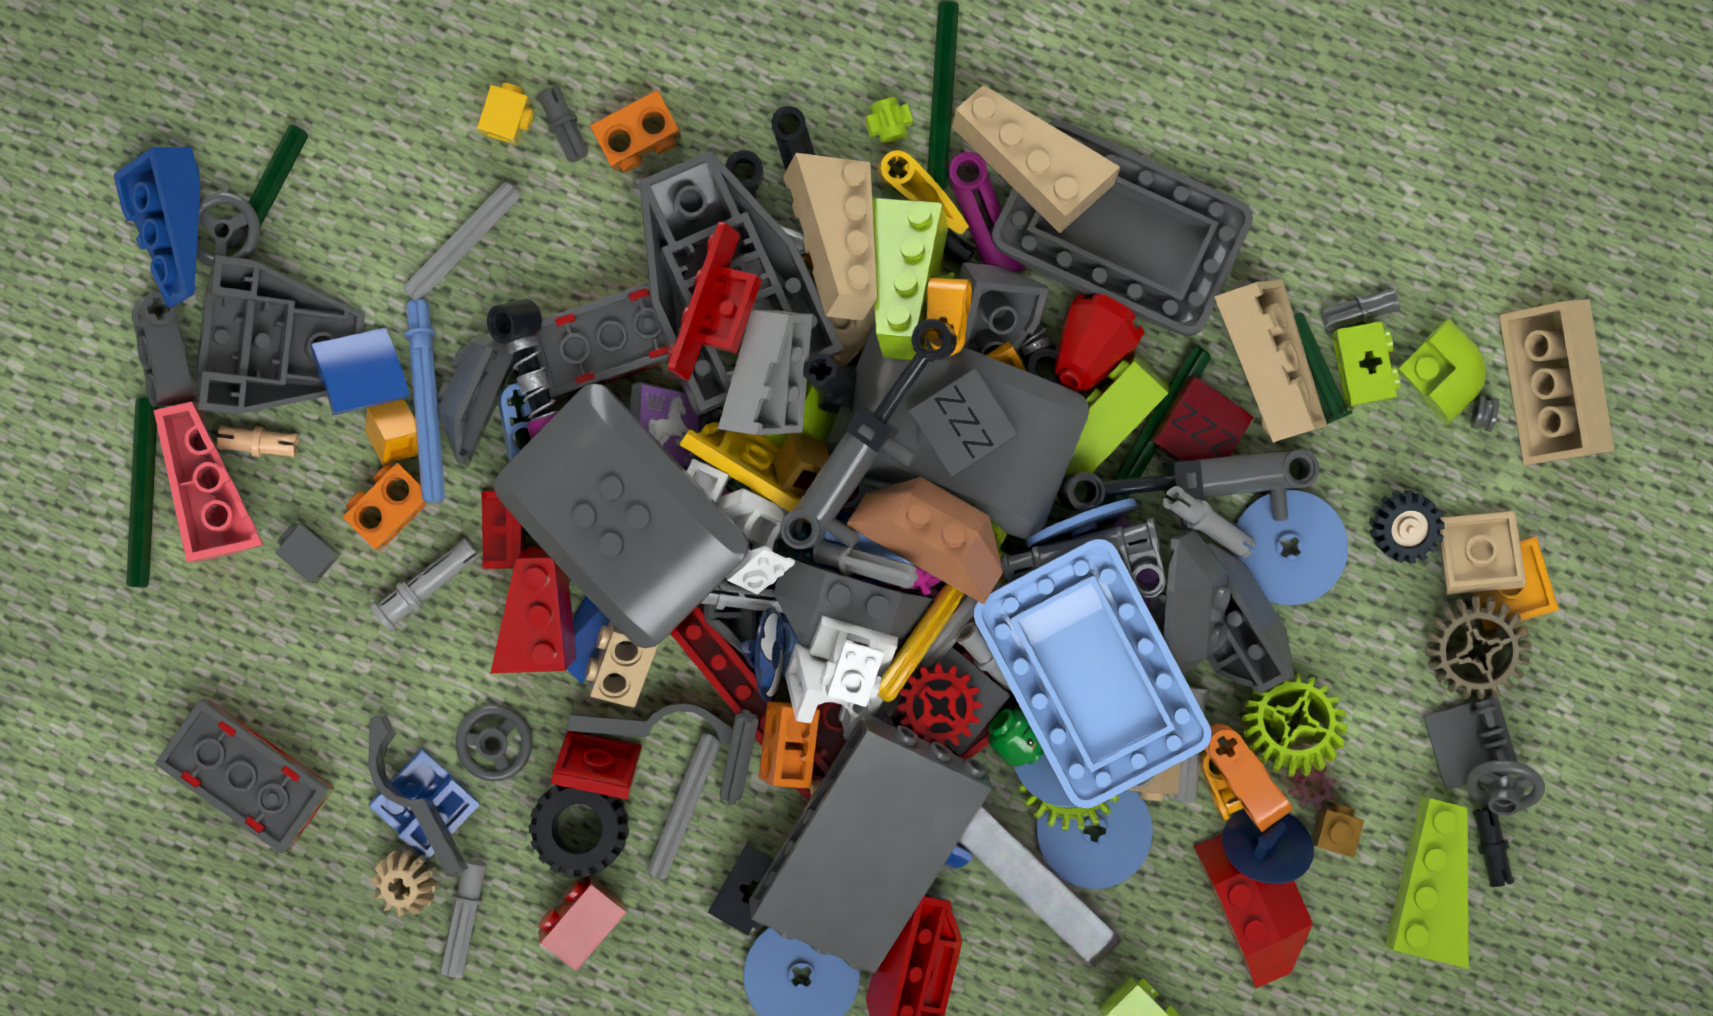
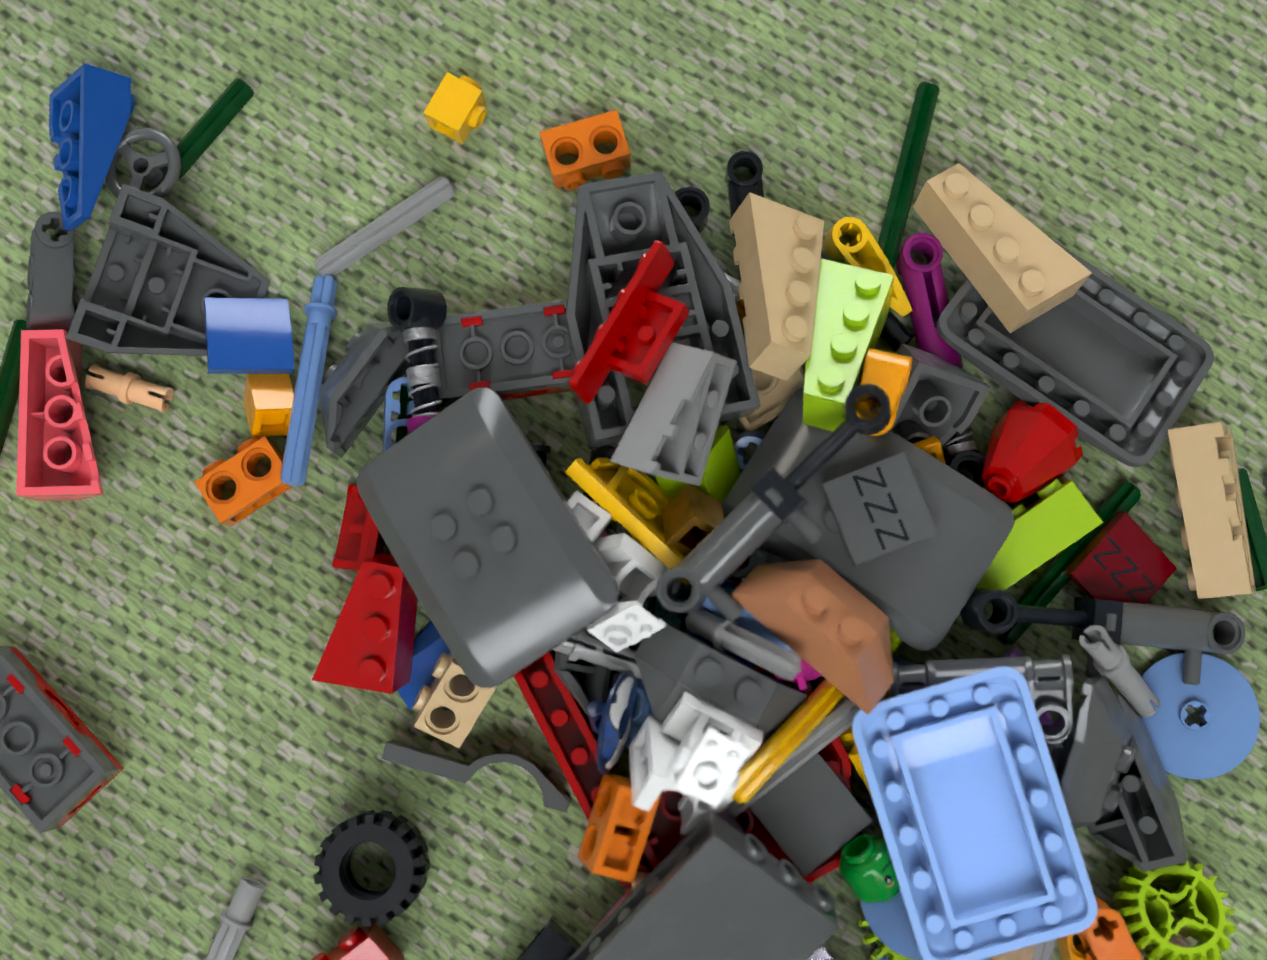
camera: 15 degrees right, 5 degrees down
(306, 552) = (151, 513): dark grey brick -> none
(404, 882) = (171, 890): tan gear -> none
(409, 595) = (251, 578): light grey pin -> none
(425, 779) = (214, 806): blue slope -> none
(426, 813) = (206, 816): dark grey piece -> none
(504, 770) = (288, 750): dark grey piece -> none
(563, 124) = (513, 129): dark grey axle -> none
(597, 764) = (405, 803): red tile -> none
(666, 416) = (557, 443): tile -> none
(684, 806) = (490, 866): light grey axle -> none
(739, 756) = (560, 825): dark grey axle -> none
(832, 383) = (741, 439): black piece -> none
(889, 120) = (848, 188): lime gear -> none
(952, 692) = (812, 806): red gear -> none
(973, 641) = (851, 771): light grey pin -> none
(1083, 523) = (982, 645): medium blue piece -> none

